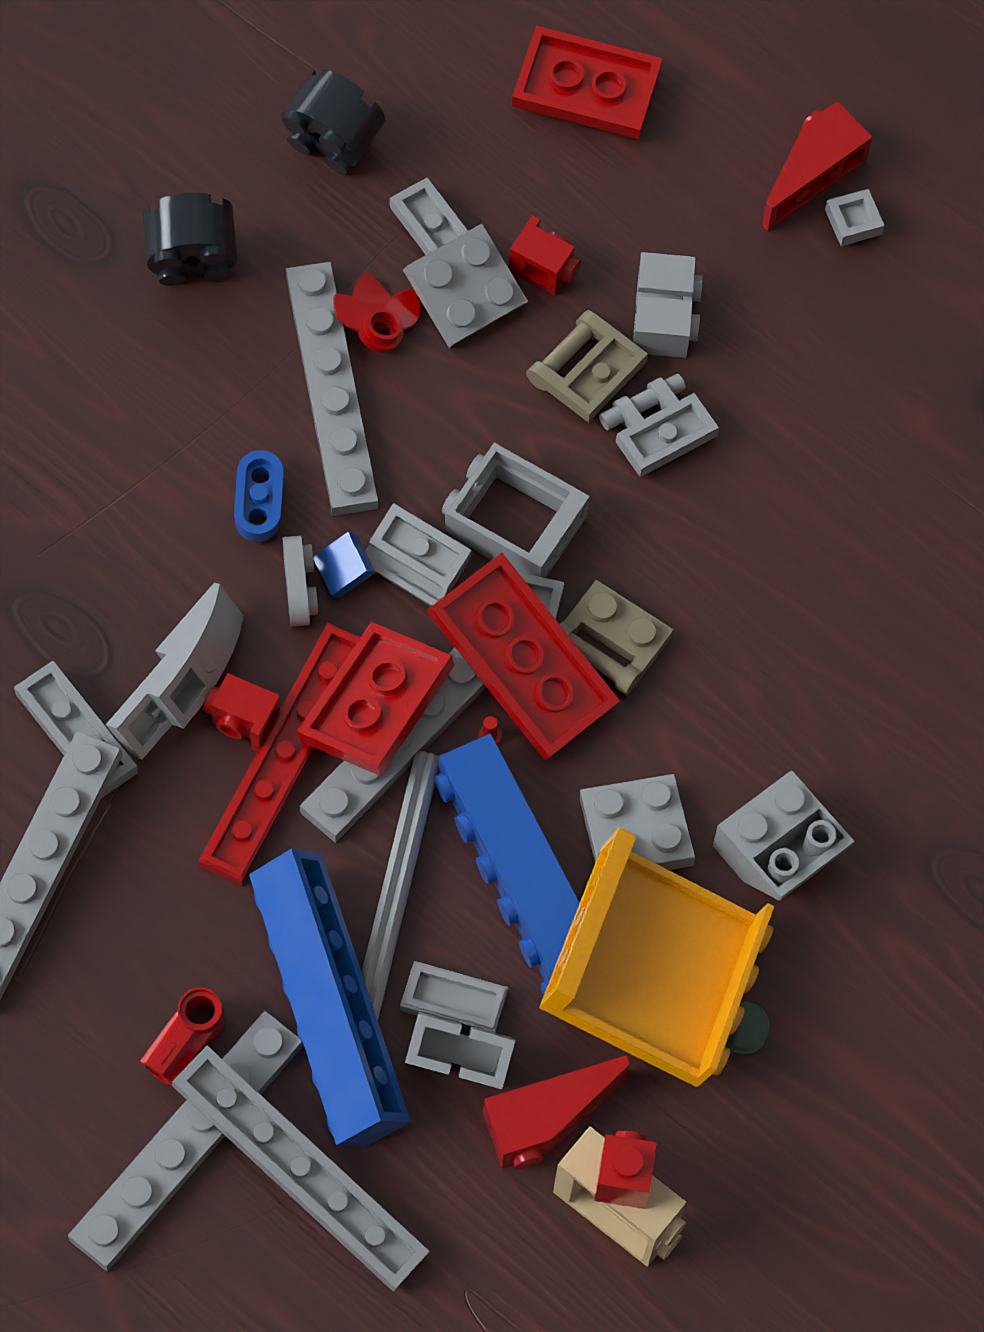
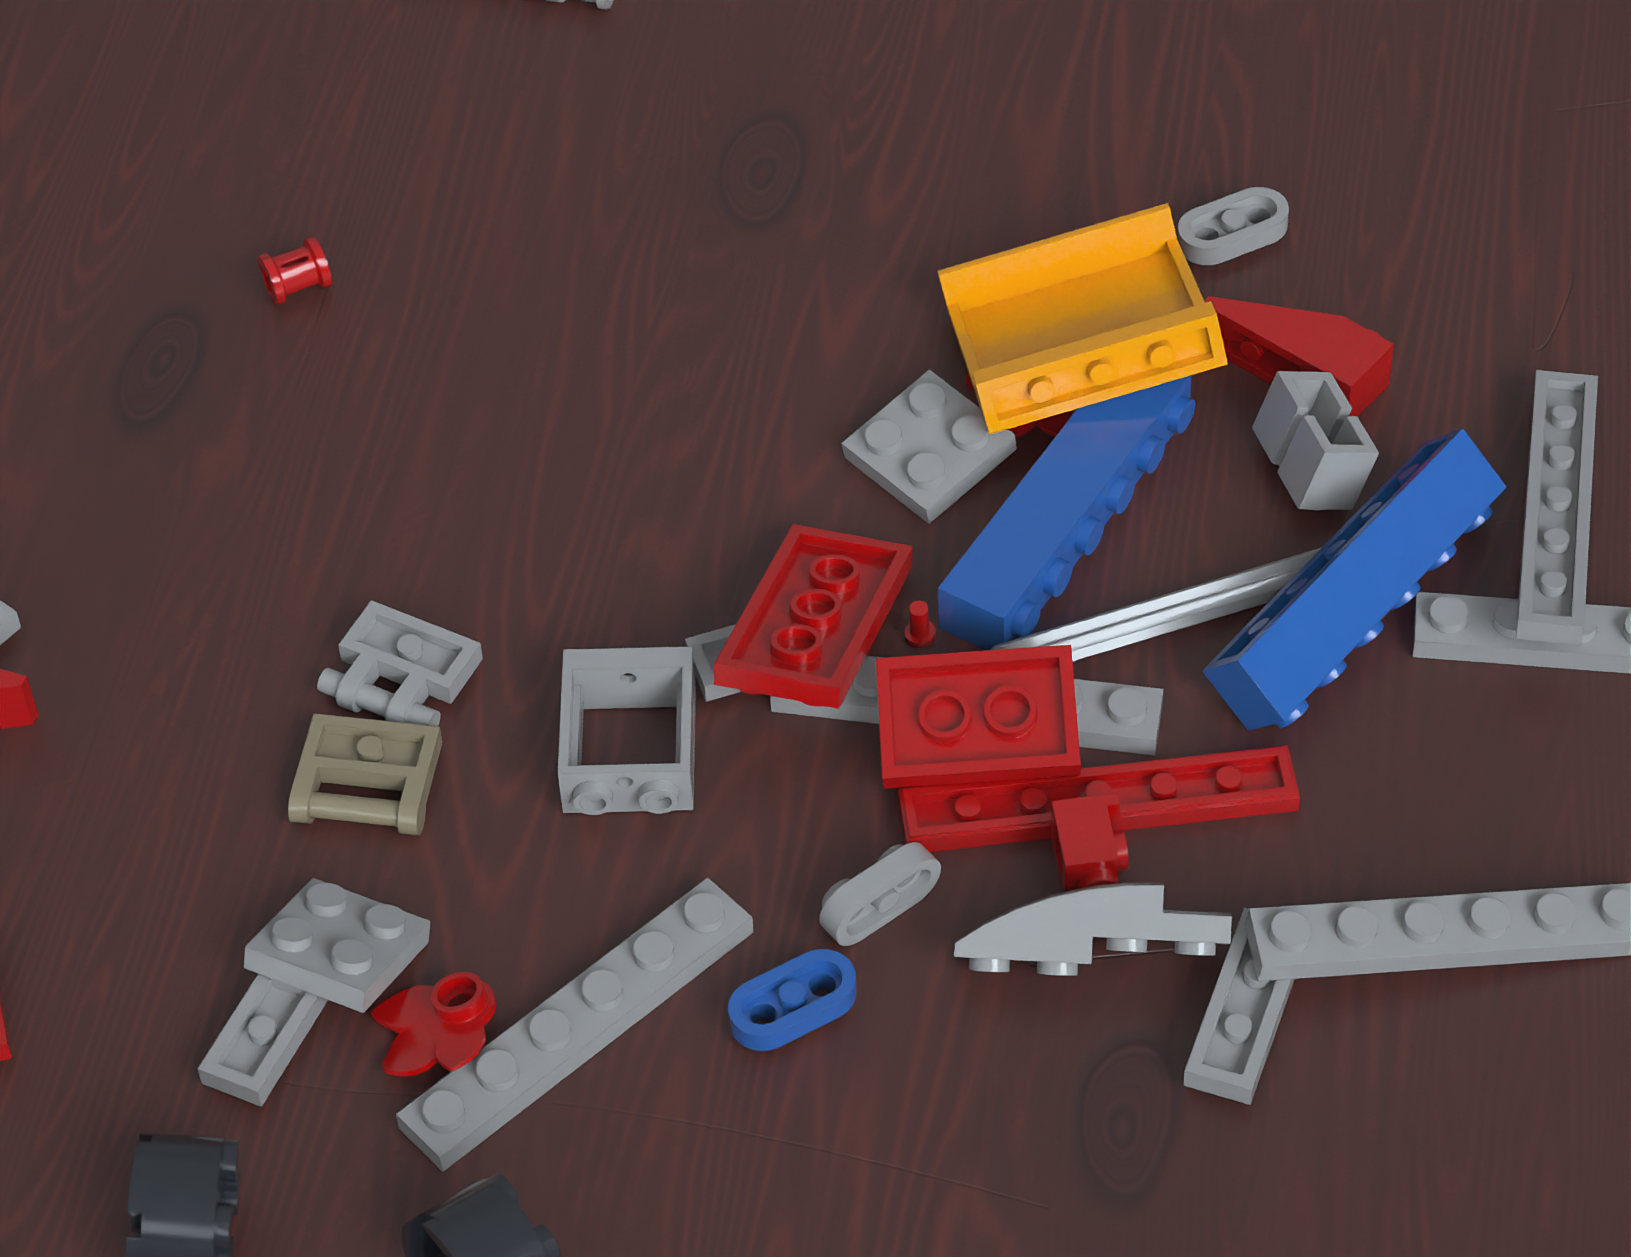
camera: 115 degrees left, 15 degrees down
(181, 1038) = (1488, 685): red piece -> none
(343, 565) = (819, 859): blue tile -> none
(416, 556) = (754, 801): light grey plate -> none
(454, 997) = (1251, 504): light grey tile -> none
(543, 258) = (237, 889): red brick -> none
(622, 629) = (695, 573): dark tan plate -> none
(625, 1169) = (1355, 171): red brick -> none
(637, 1230) = (1353, 233): tan window -> none
(665, 304) = (199, 751): light grey piece -> none
(707, 1154) = (1233, 225): none -> light grey plate
(780, 838) = (851, 312): light grey slope -> none

